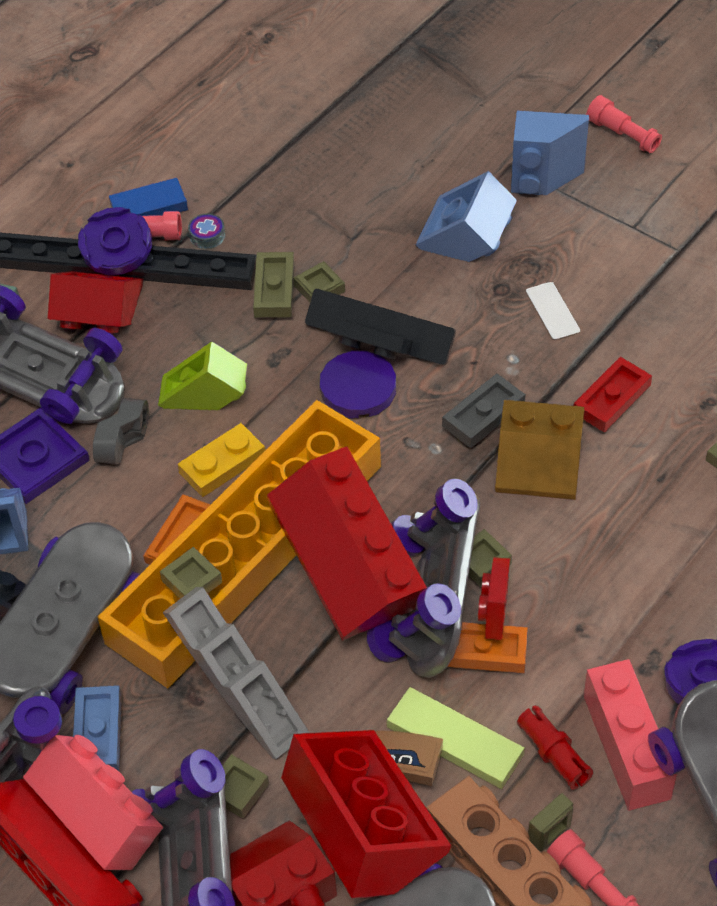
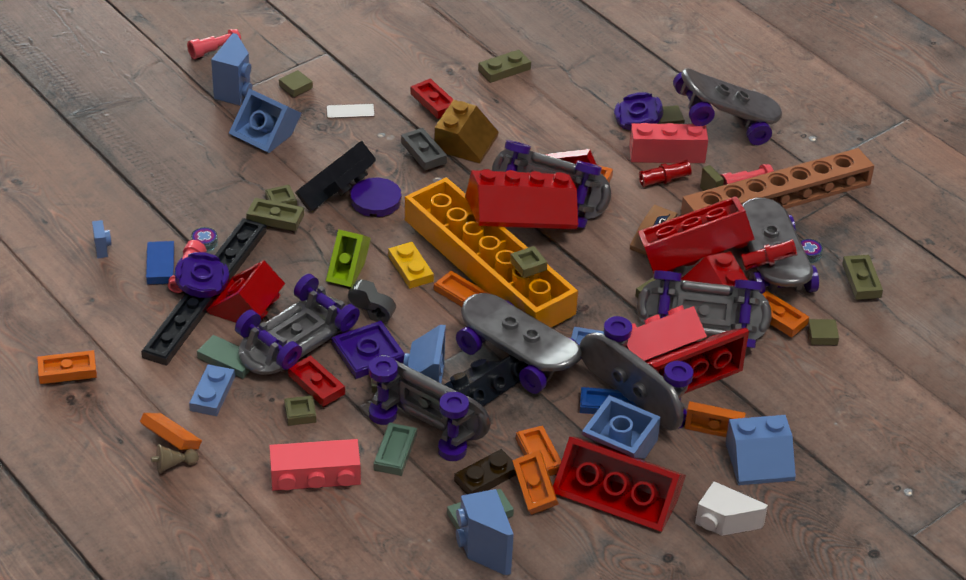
camera: 80 degrees left, 10 degrees down
(164, 132) = (101, 238): none -> medium blue plate
(235, 672) = (593, 268): light grey slope -> none
(464, 740) = (631, 217): yellowish green tile -> none
(579, 233) = (295, 83): none -> olive tile

